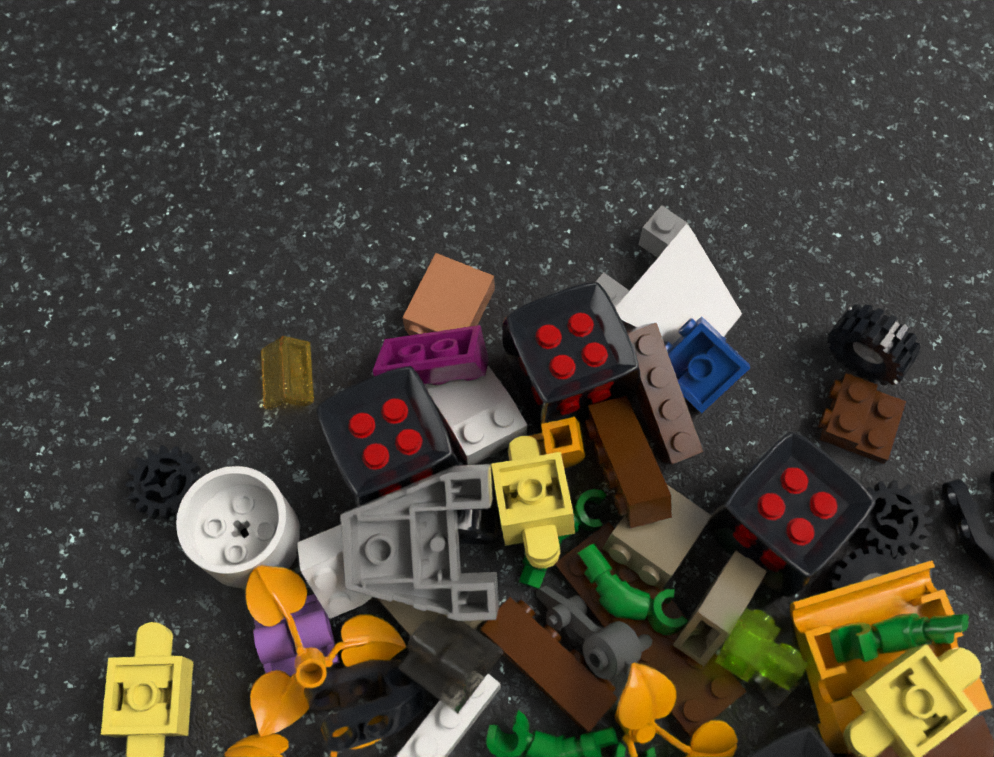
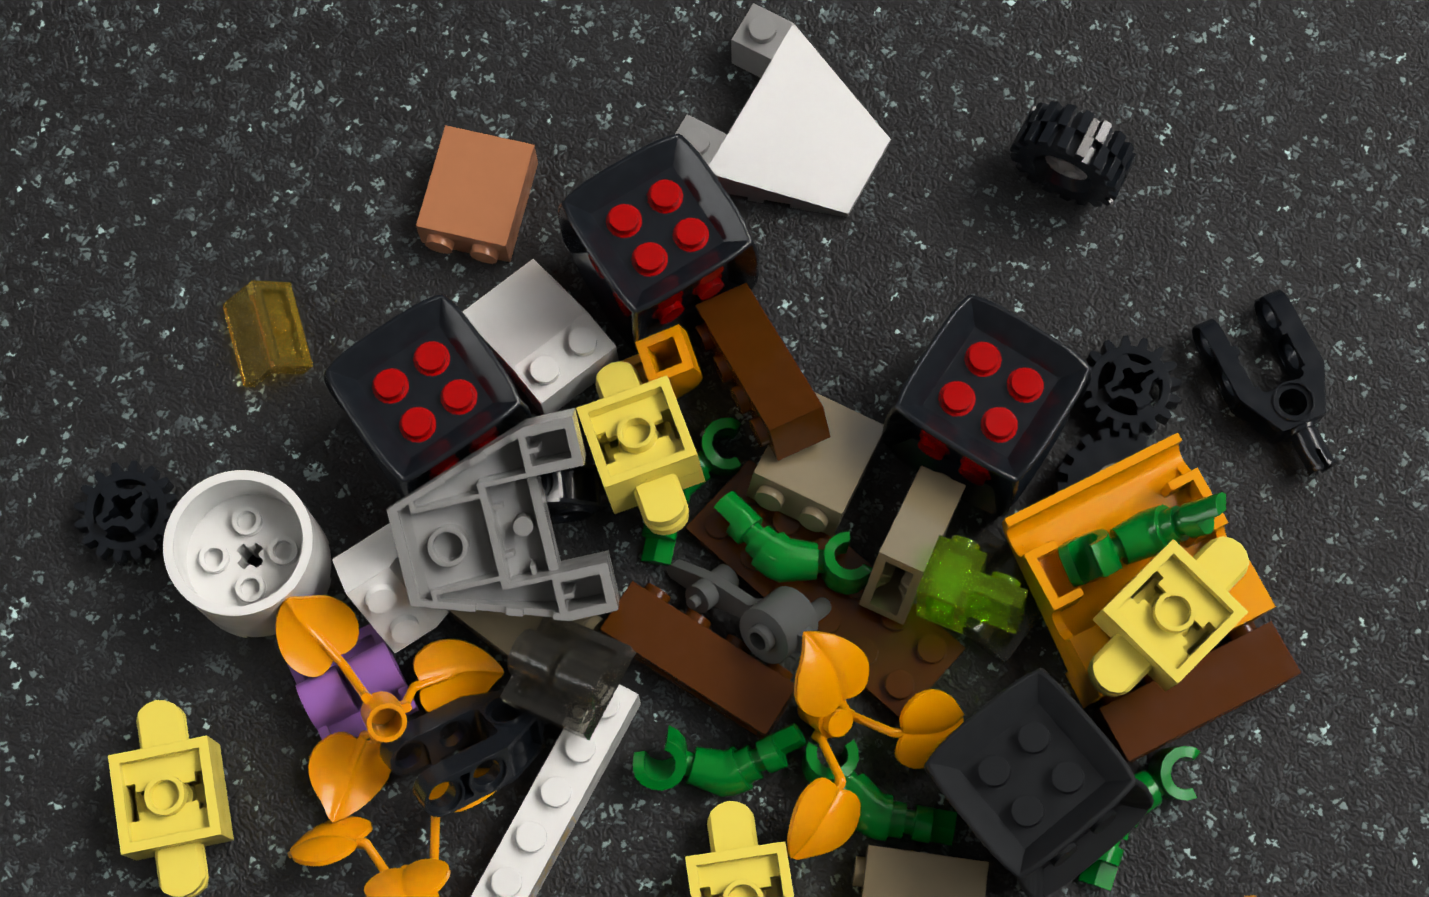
camera: 10 degrees left, 5 degrees up
(437, 355) = (474, 271): magenta slope -> none
(662, 397) = (794, 275): reddish brown brick -> none
(704, 363) = (840, 220): blue plate -> none
(861, 418) = (1072, 258): reddish brown plate -> none

